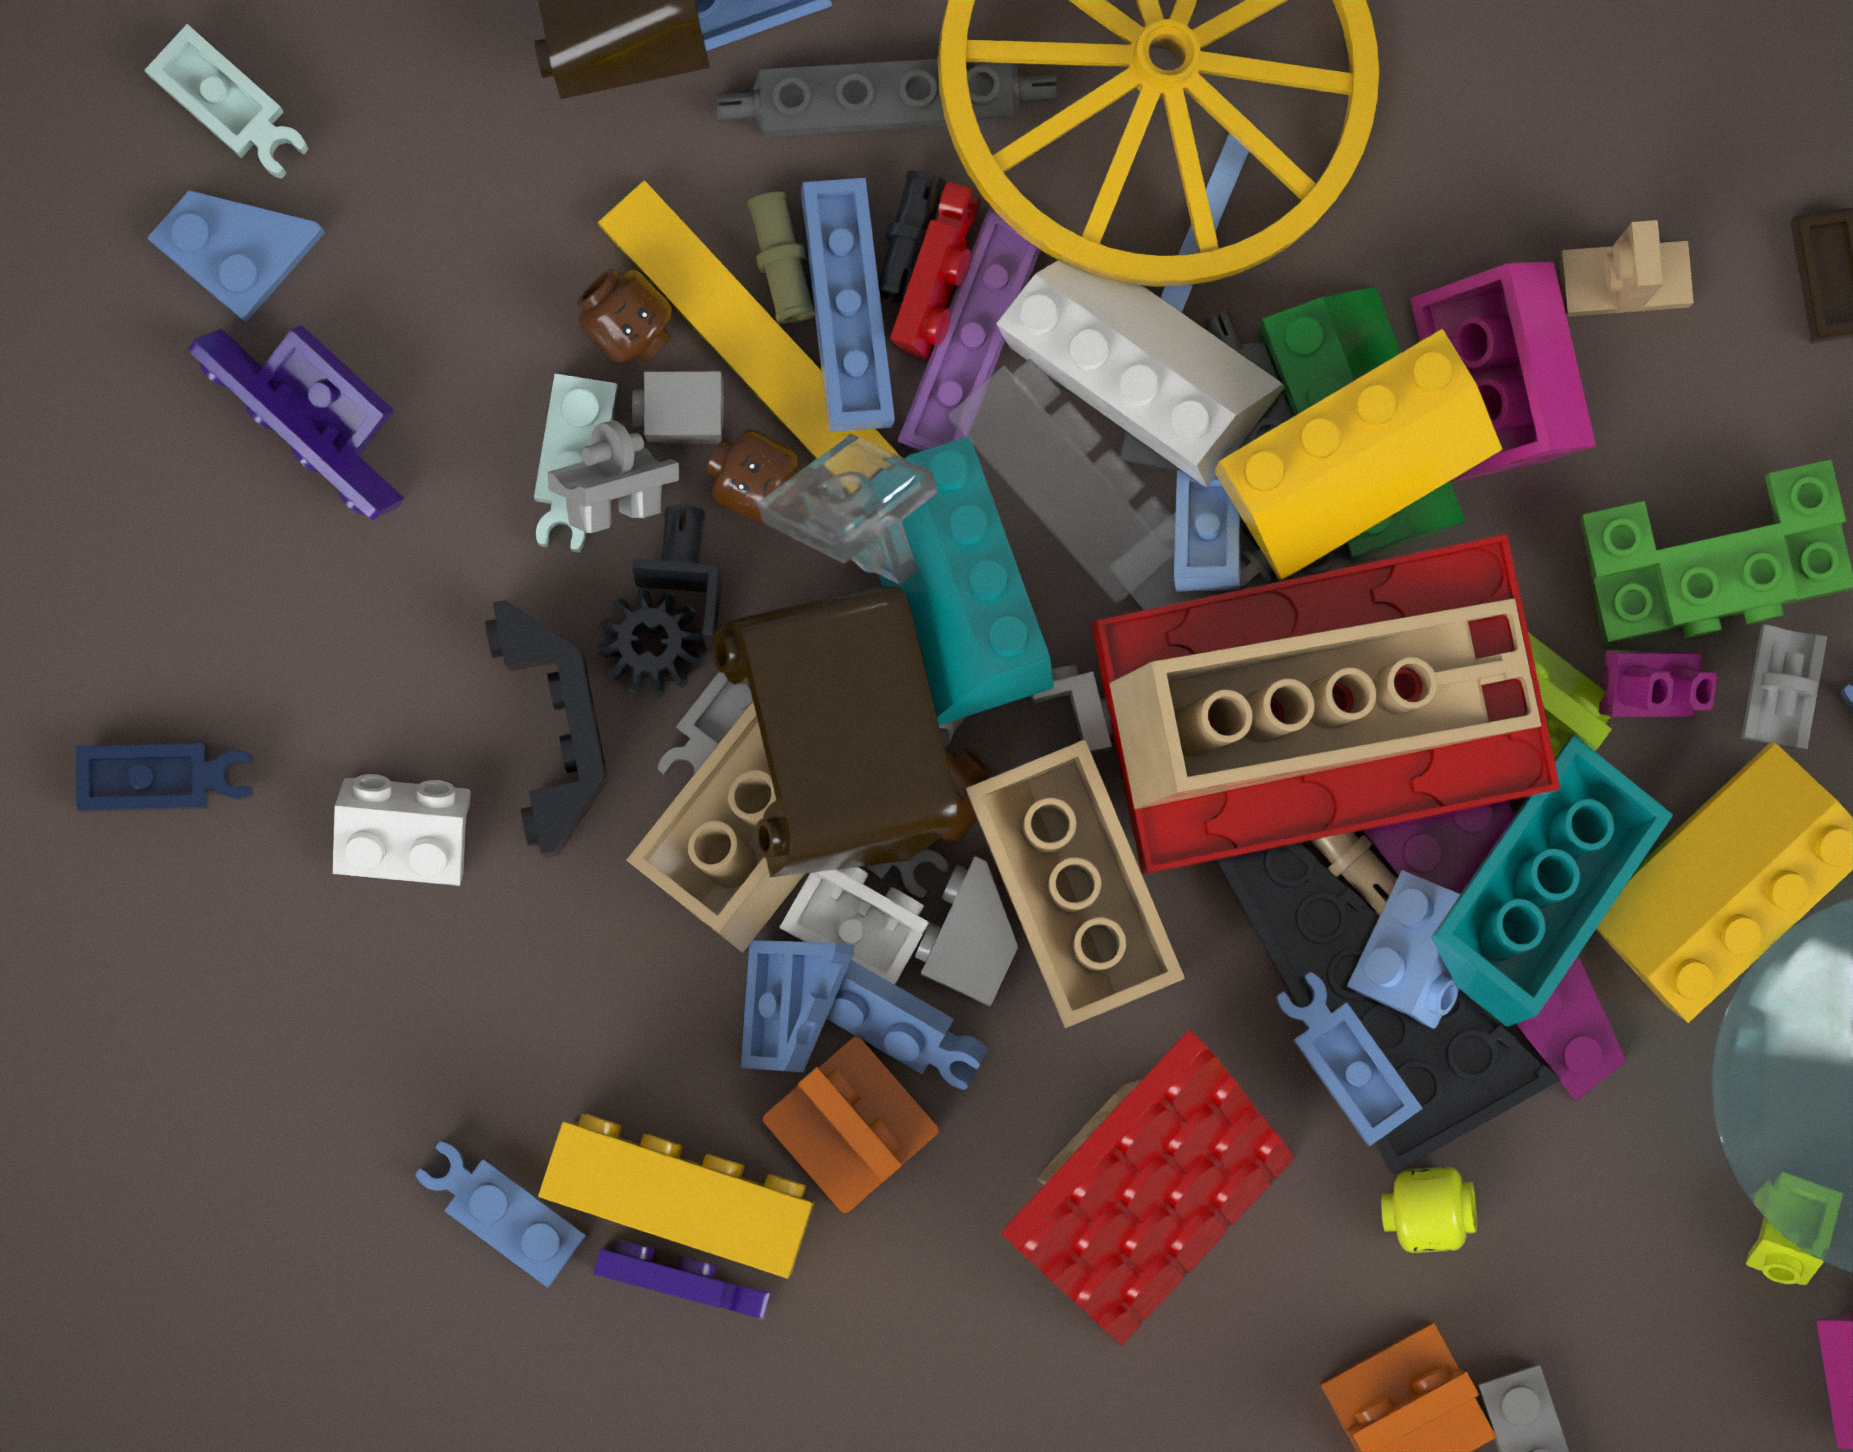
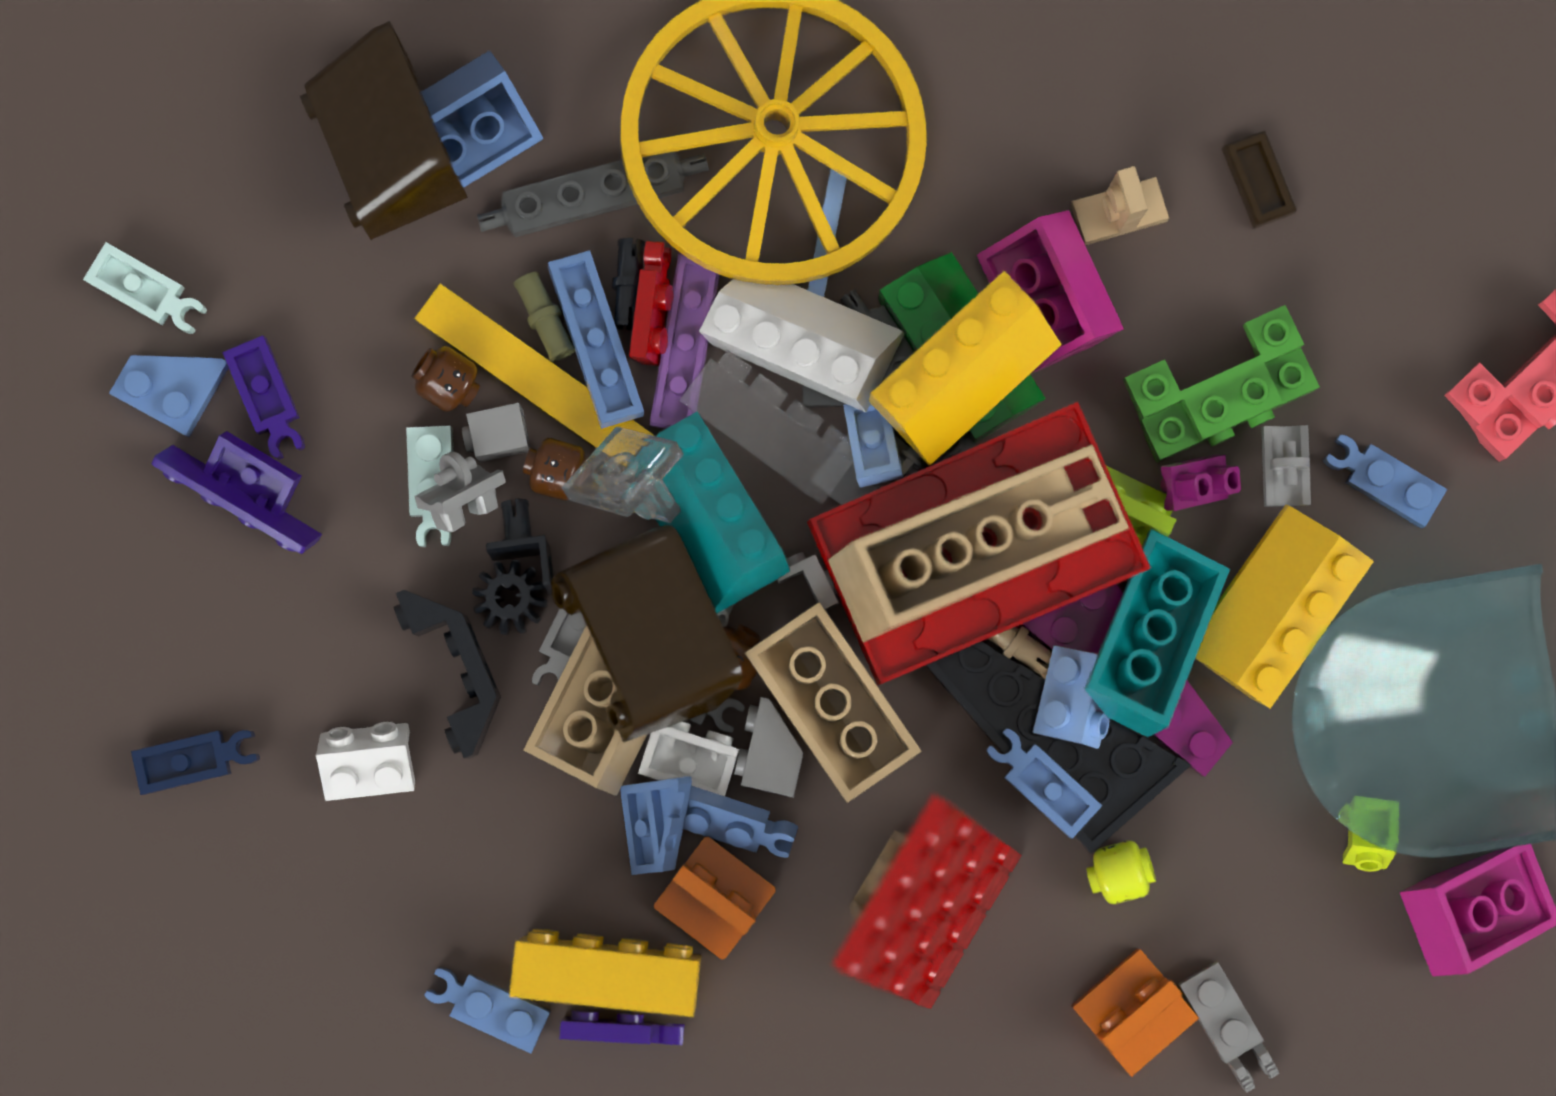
camera: 10 degrees left, 0 degrees up
(365, 282) = (264, 392): none -> dark purple plate

